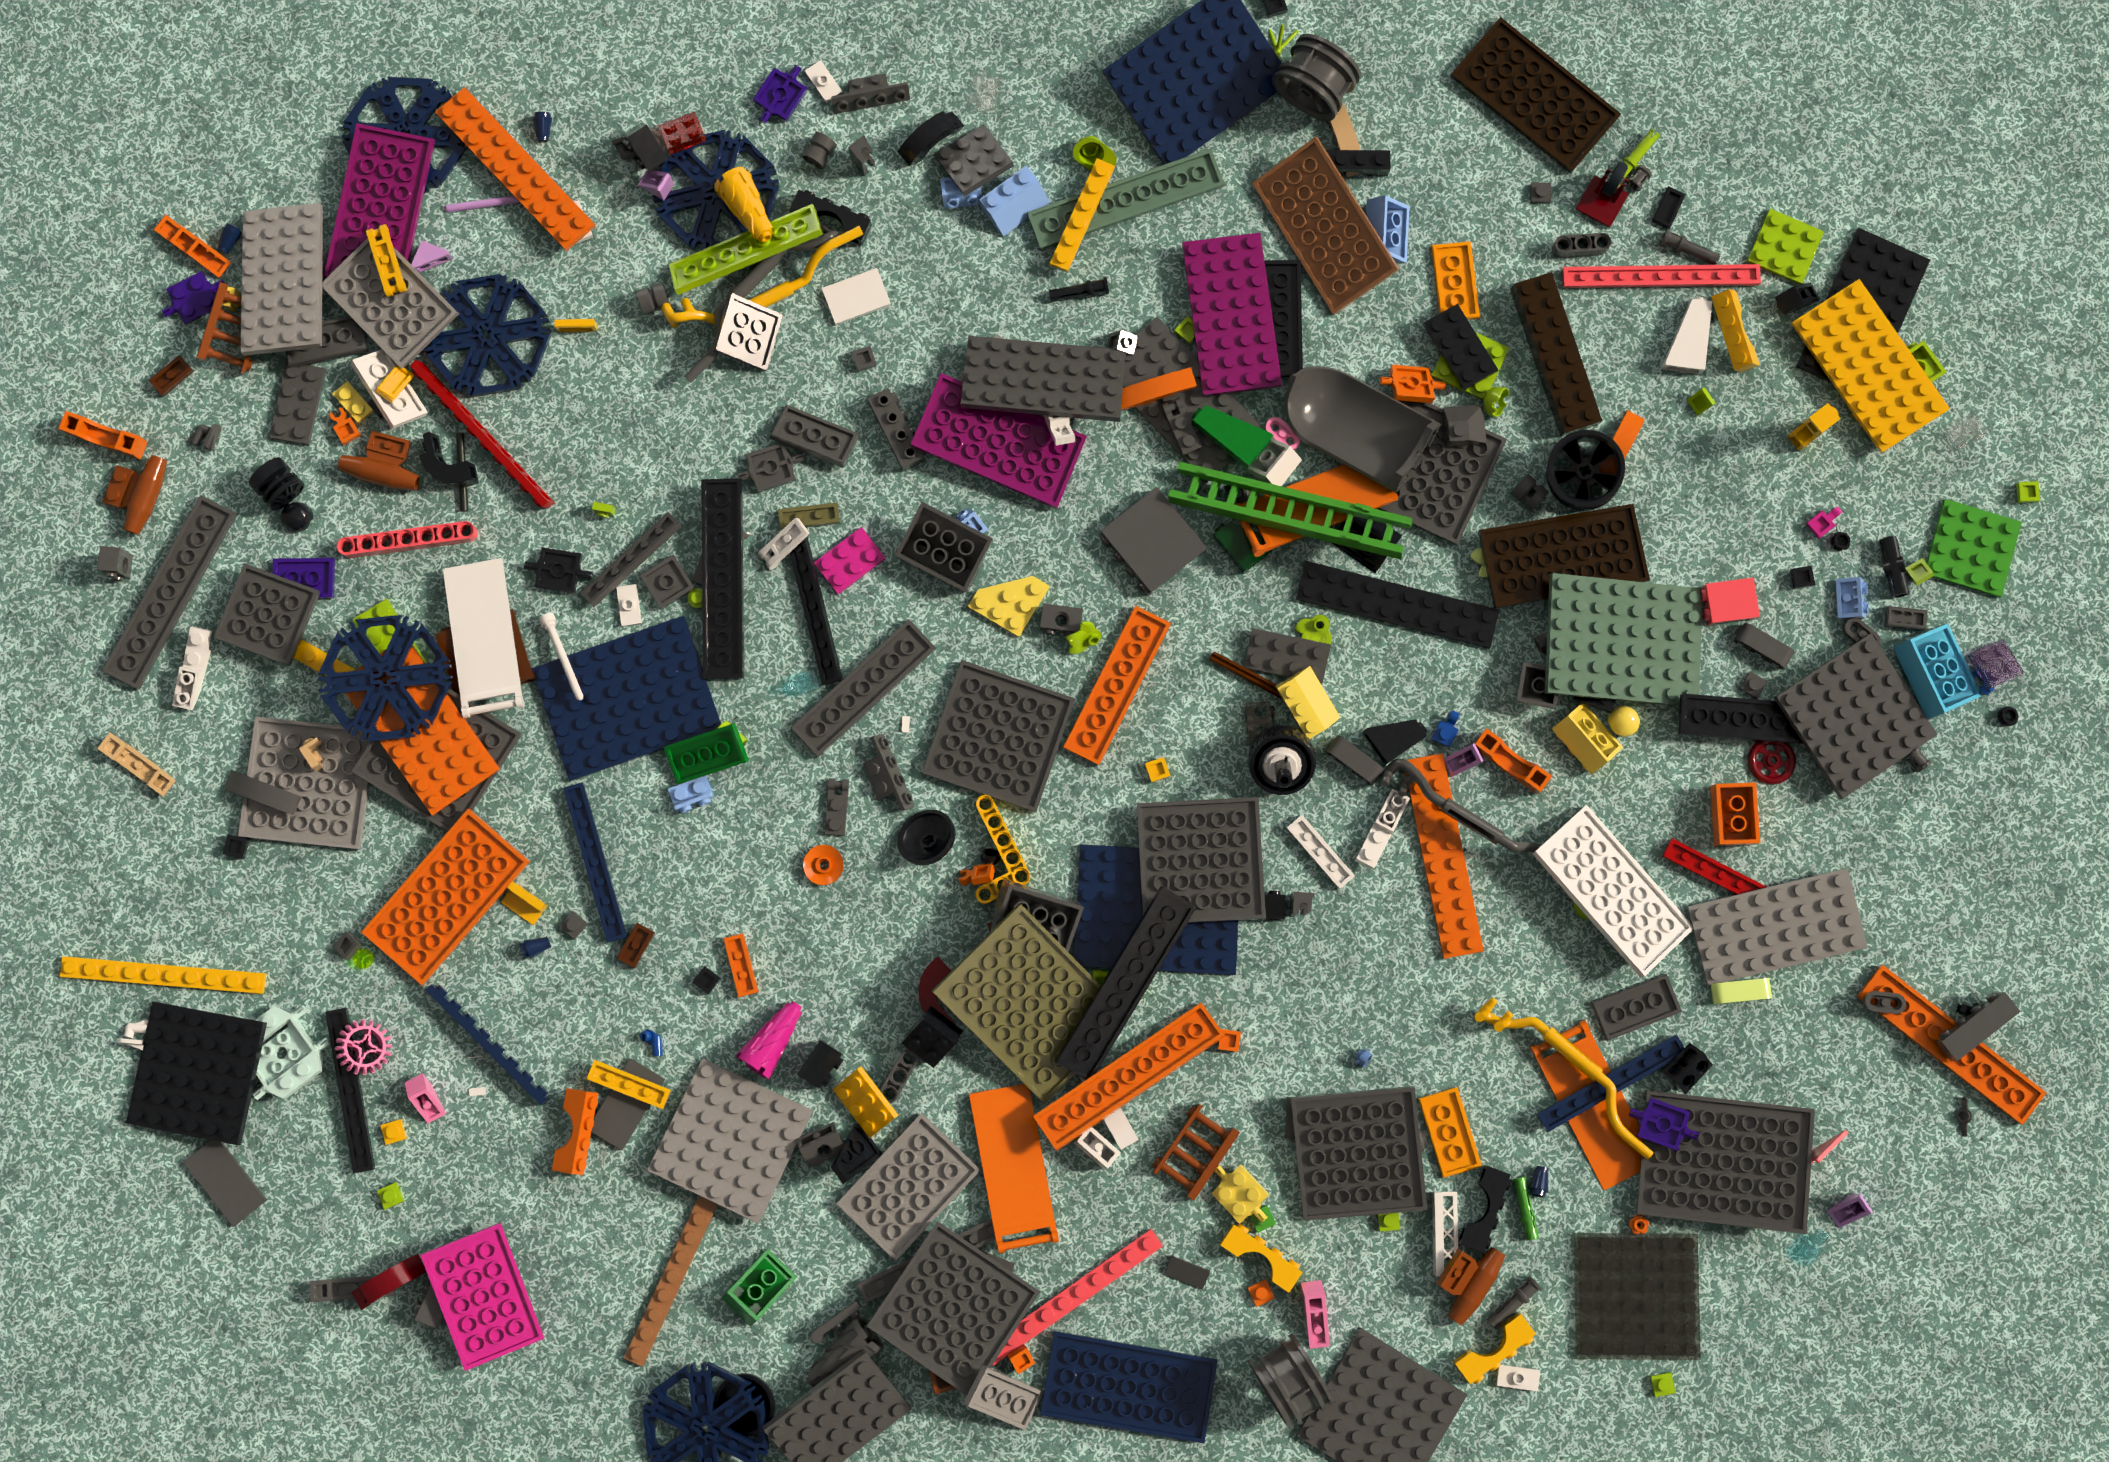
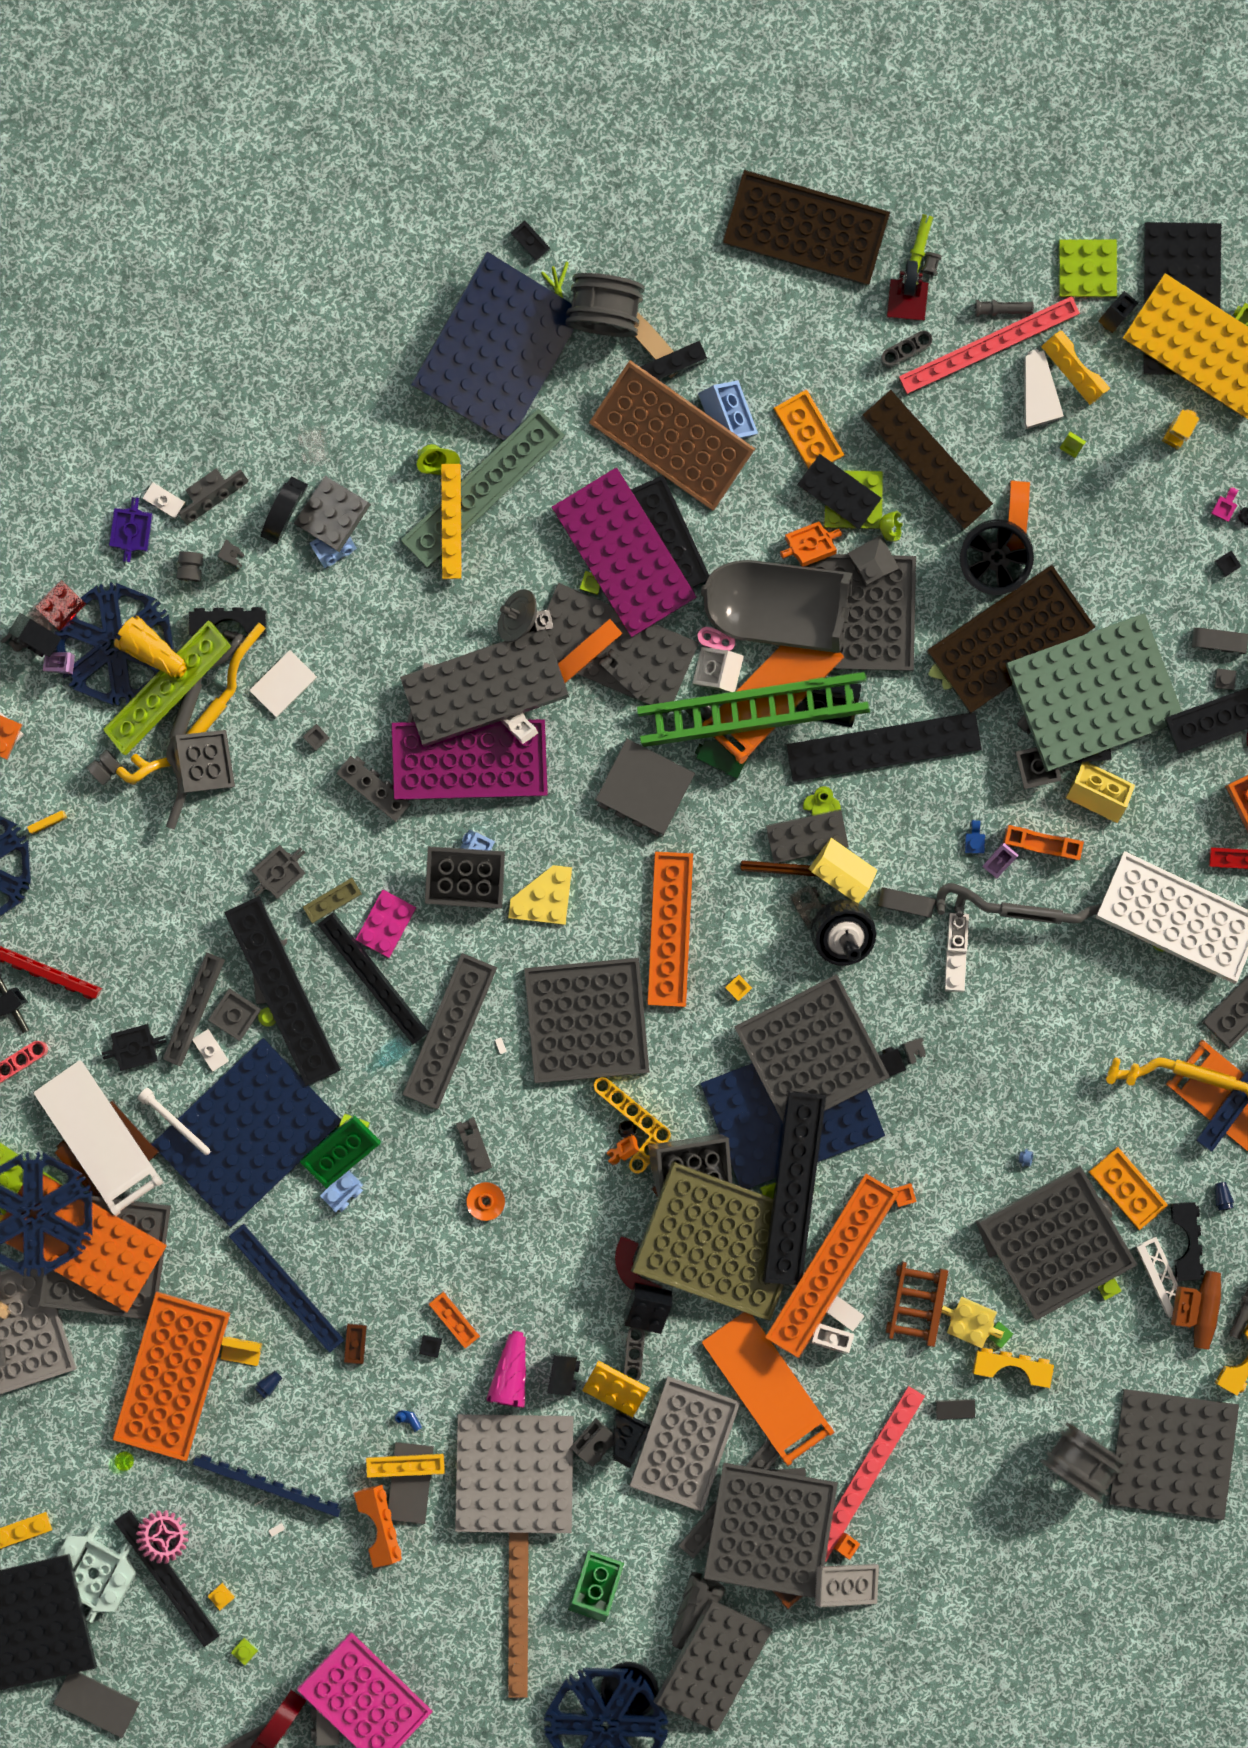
camera: 20 degrees left, 5 degrees up
(347, 945) = (105, 1456): dark grey plate -> none
(424, 1098) = (234, 1556): bright pink slope -> none
(574, 925) = (293, 1350): dark grey plate -> none
(603, 510) = (149, 977): lime plate -> none
(783, 543) = (322, 935): white plate -> none
(814, 436) = (304, 827): dark grey tile -> none
(836, 1321) = (675, 1586): dark grey plate -> none
(886, 775) = (504, 1099): dark grey bracket -> none
(920, 831) = (555, 1137): black dish -> none
(1012, 199) = (383, 534): light blue slope -> none
(1052, 612) = (584, 891): dark grey brick -> none
(1084, 638) = (625, 897): lime plate -> none
(1088, 289) = (486, 584): black pin -> none
(1104, 327) = (517, 615): none -> dark grey piece
(1129, 1387) = (949, 1527): dark blue plate -> none
(1232, 435) = (677, 663): green slope -> none
(1261, 1292) = (1026, 1397): orange plate -> none
(1315, 1314) = (1080, 1395): bright pink slope -> none
(1320, 852) = (911, 996): white plate -> none
(1395, 738) = (934, 867): black slope -> none
(1444, 863) = (1023, 957): orange plate -> none
(1523, 489) = (951, 589): dark grey wheel -> none
(1526, 1211) = (1223, 1227): bright green pin -> none
(1540, 192) = (849, 316): dark grey plate -> none
(1623, 721) = (1125, 761): light yellow hair -> none
(1668, 207) = (969, 278): black tile -> none
(1730, 601) = (1173, 614): coral panel -> none

